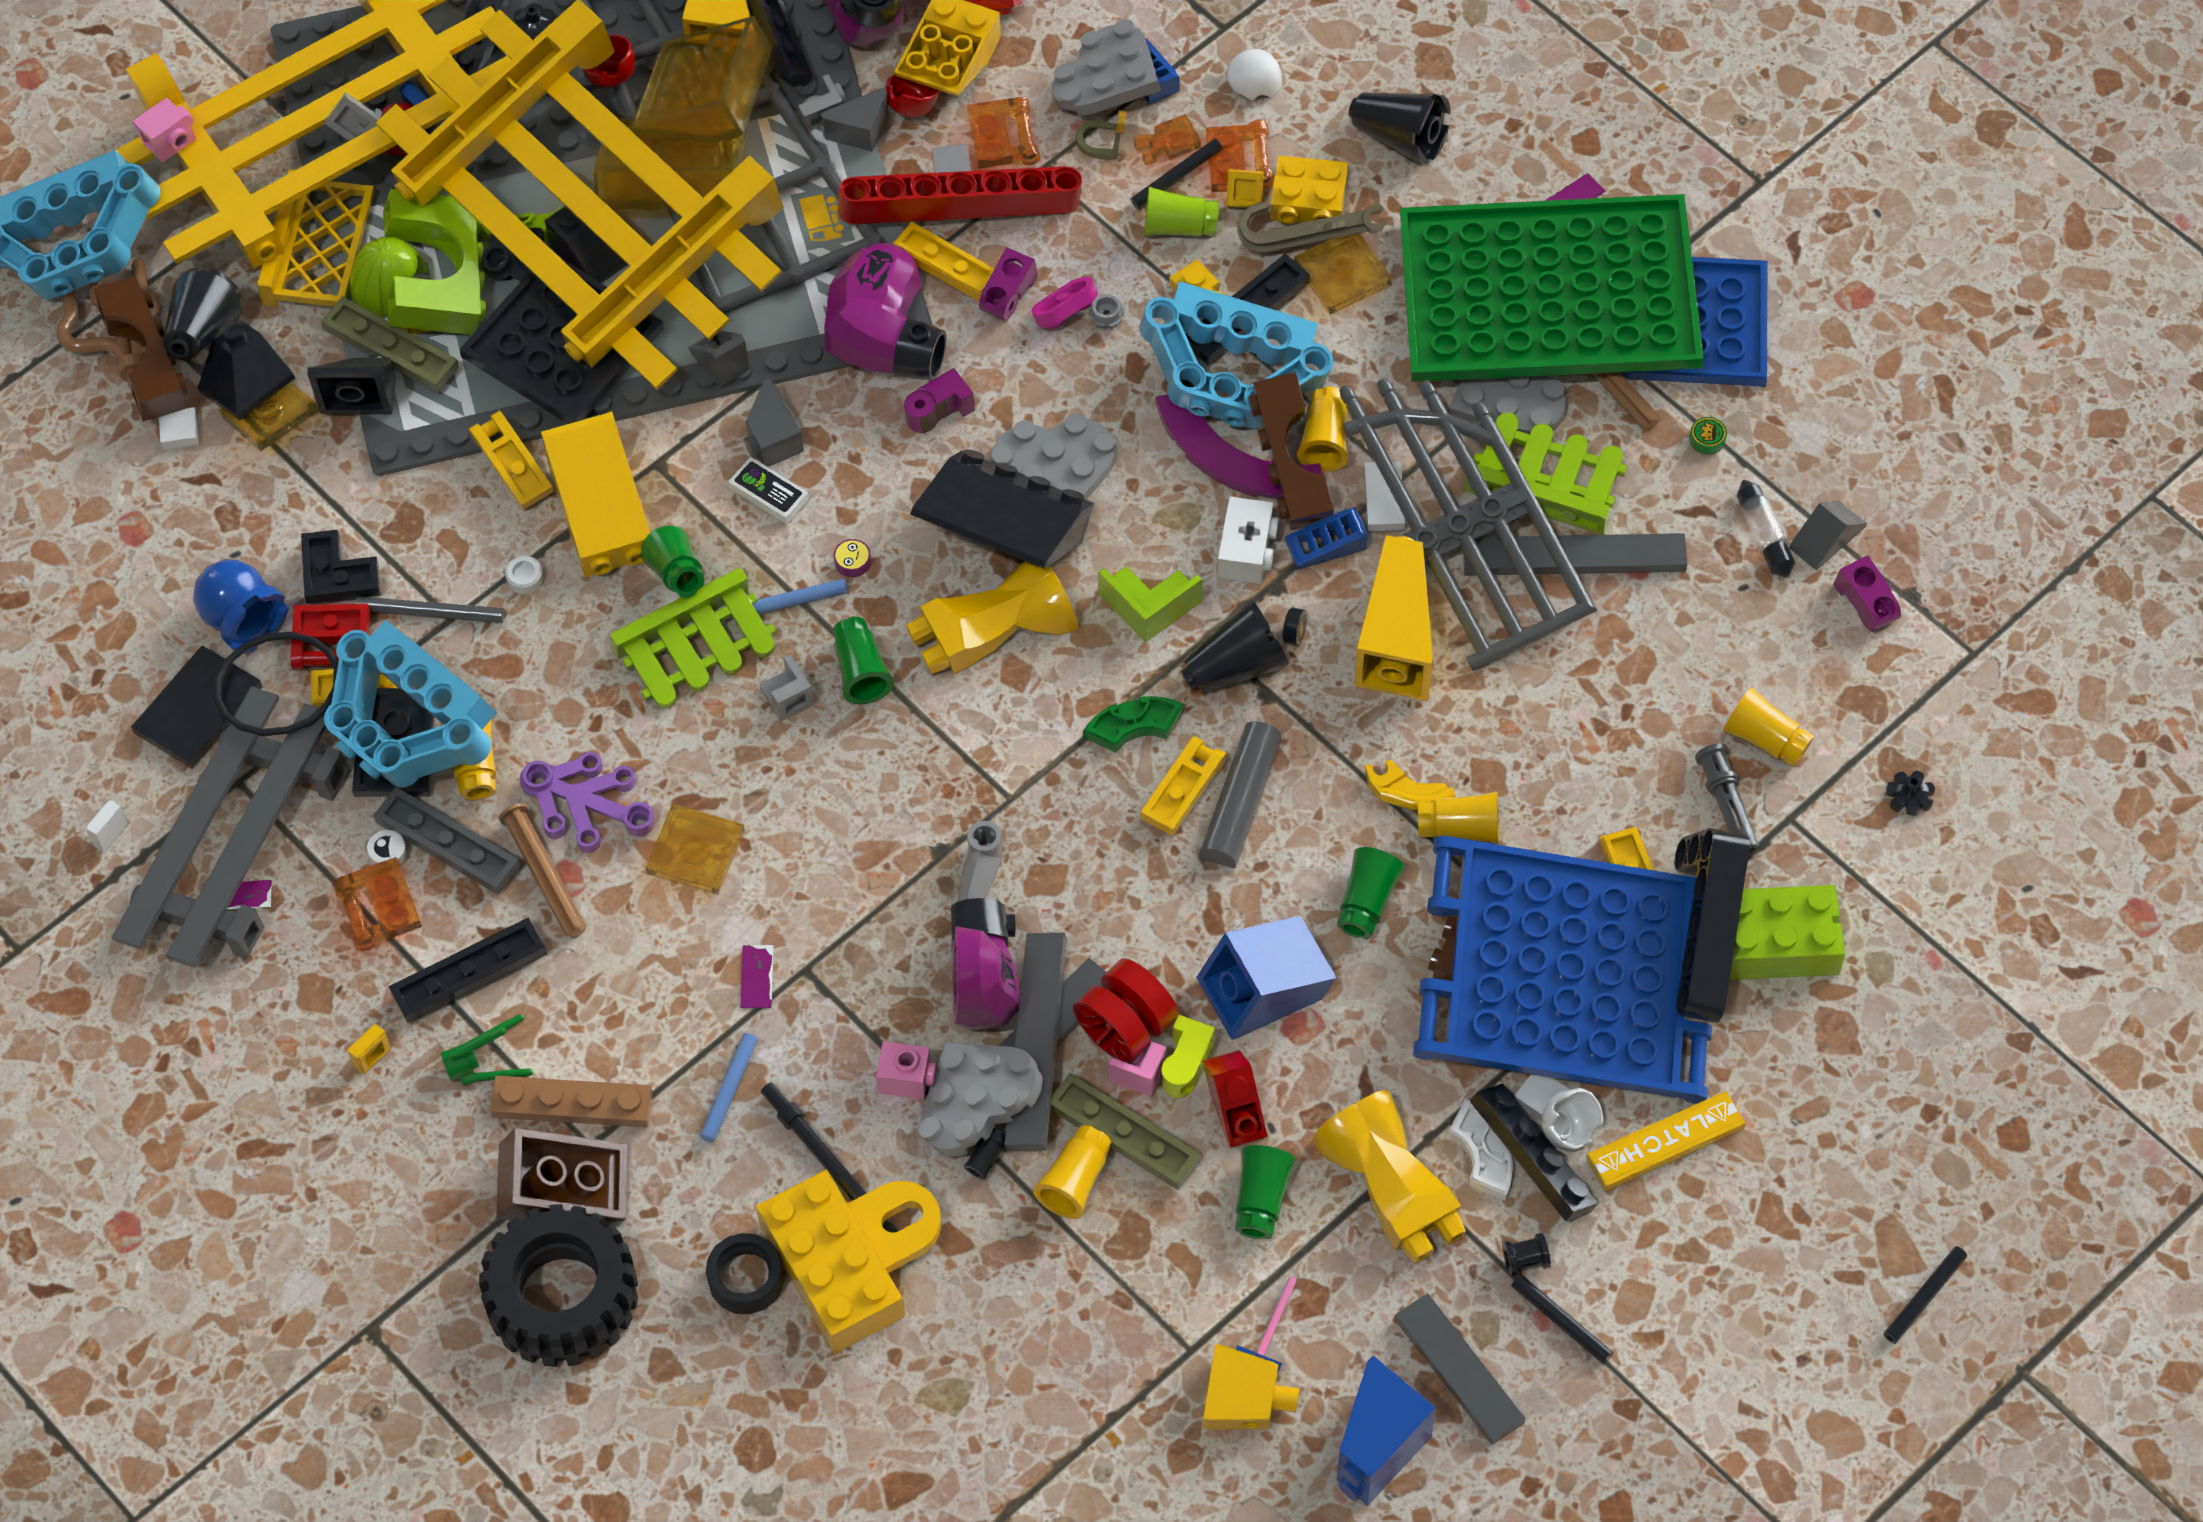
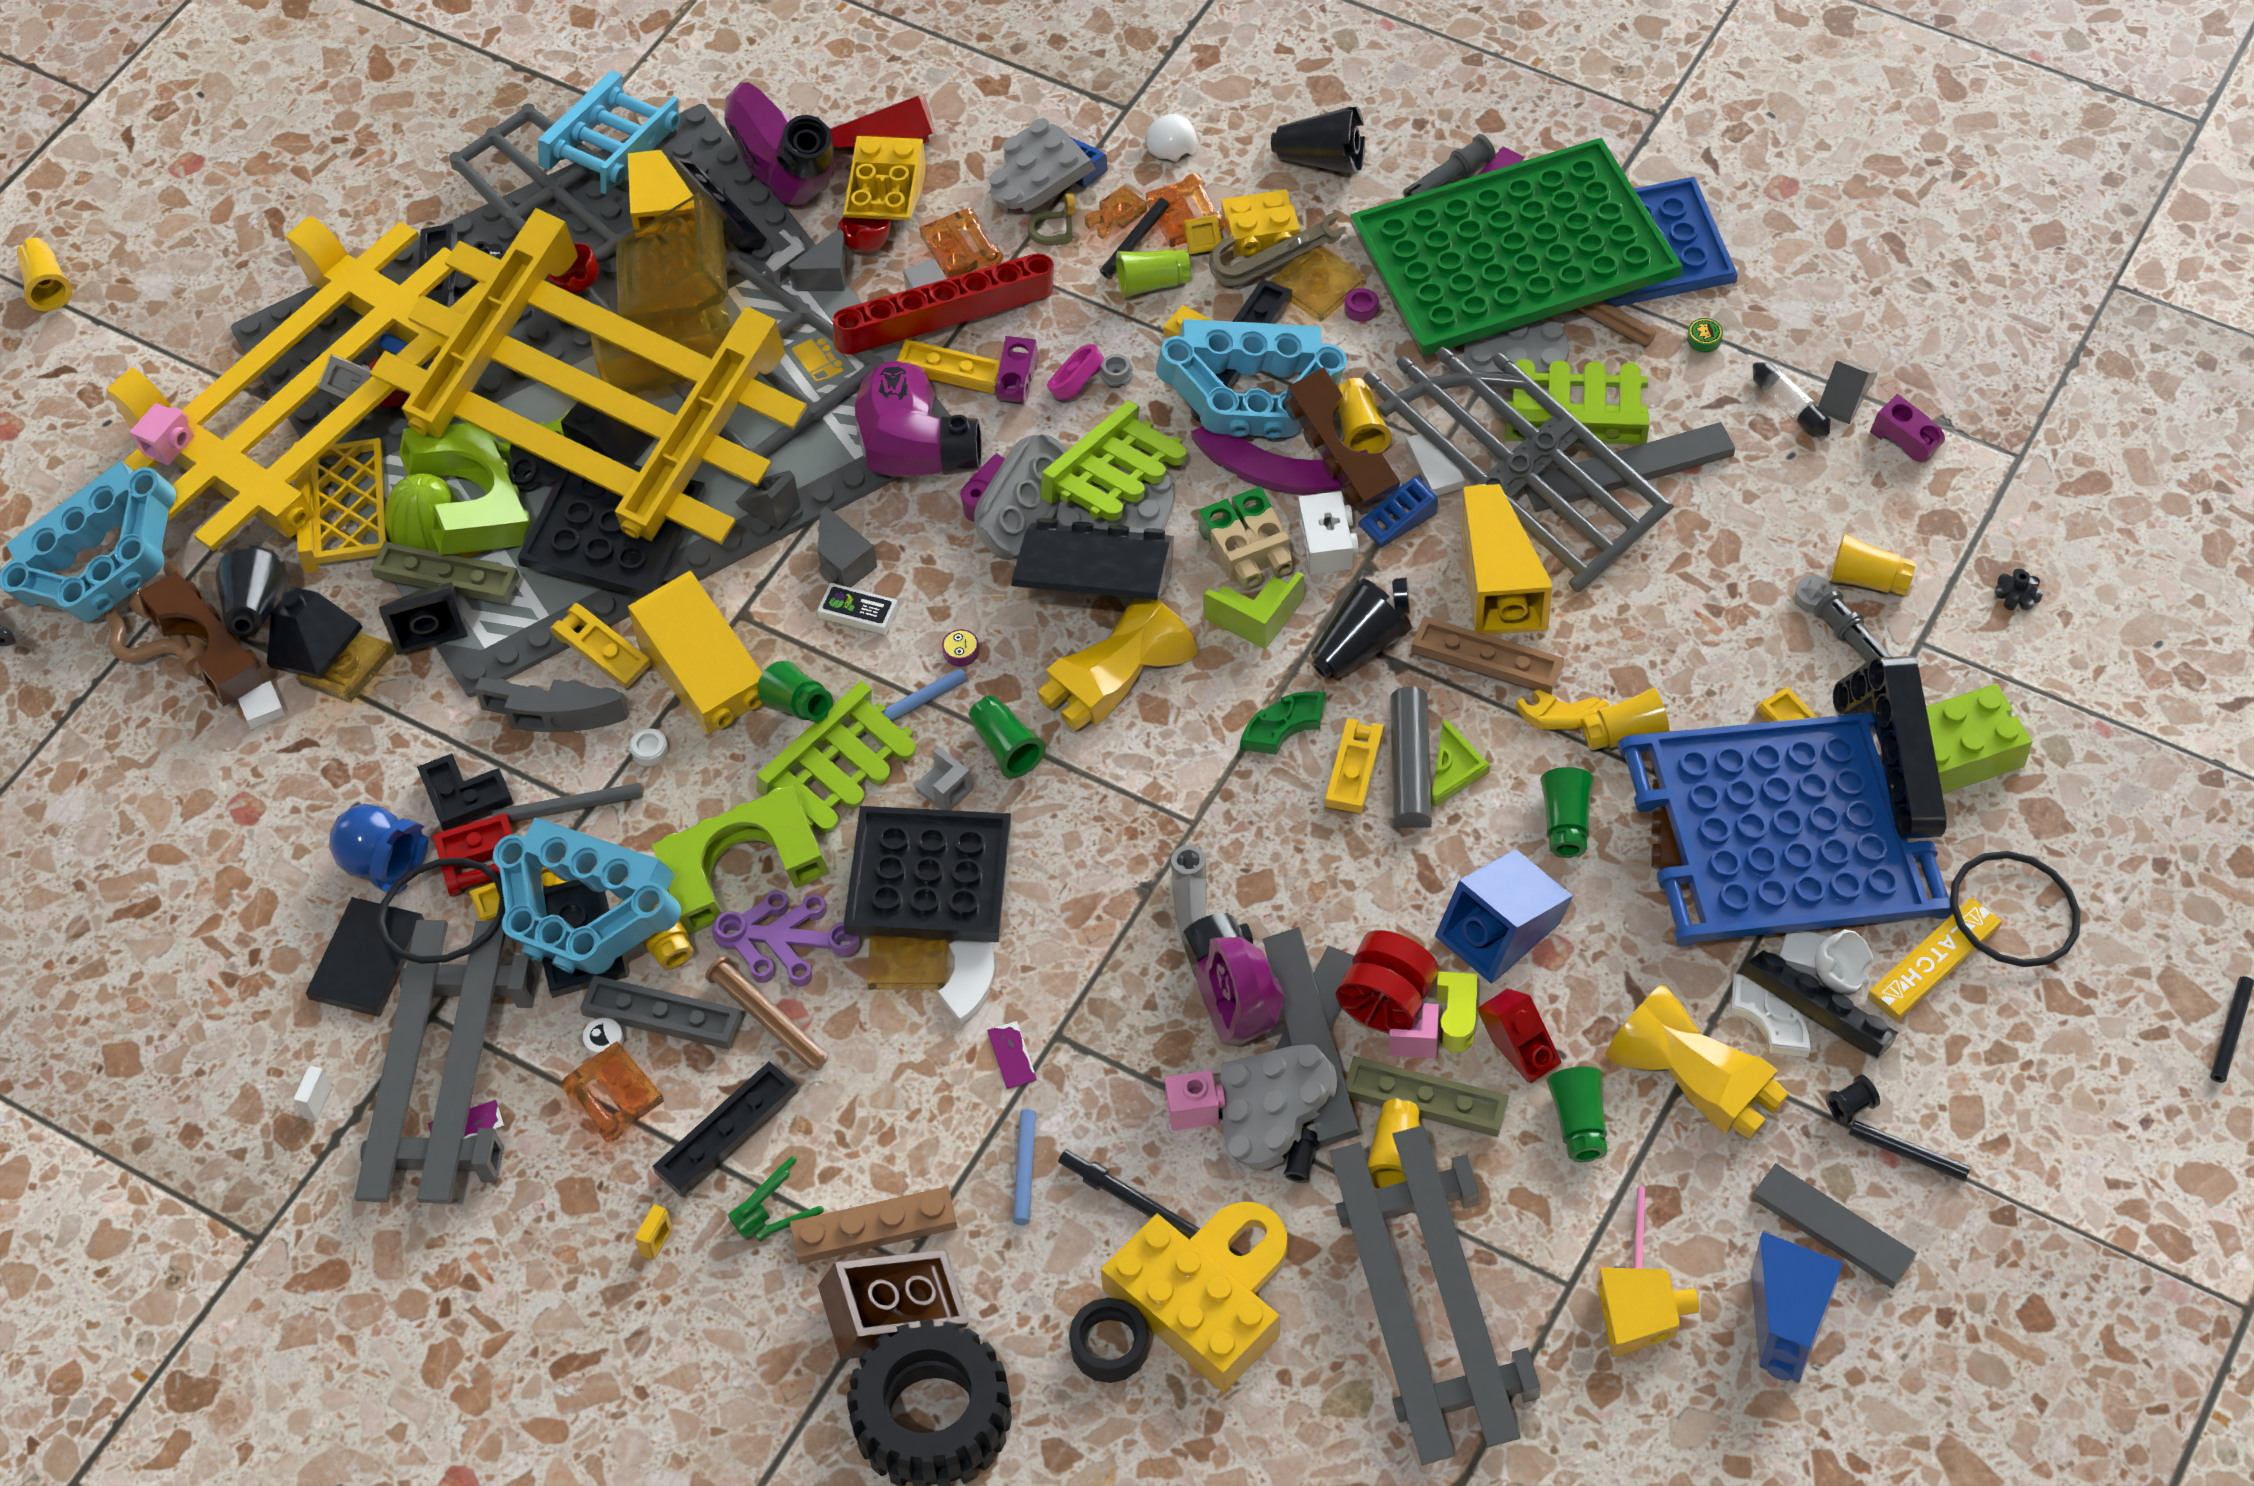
camera: 15 degrees left, 5 degrees down
(453, 513) = (561, 709): none -> dark grey slope
(525, 694) = (769, 819): none -> lime arch
(738, 778) = (928, 874): none -> black plate
(745, 889) = (970, 980): none -> white tile
(965, 416) = (1014, 495): none -> light grey tile
(1053, 393) = (1093, 460): none -> lime fence
(1079, 1226) = (1428, 1195): none -> dark grey fence
(1169, 536) = (1247, 537): none -> tan hips
(1282, 814) = (1456, 764): none -> lime tile
(1355, 711) = (1487, 655): none -> medium nougat plate
(1376, 307) = (1361, 304): none -> magenta tile
(1533, 182) = (1459, 164): none -> dark grey pin
(1702, 734) = (1811, 591): none -> light grey tile
(1736, 1163) = (1991, 952): none -> black piece

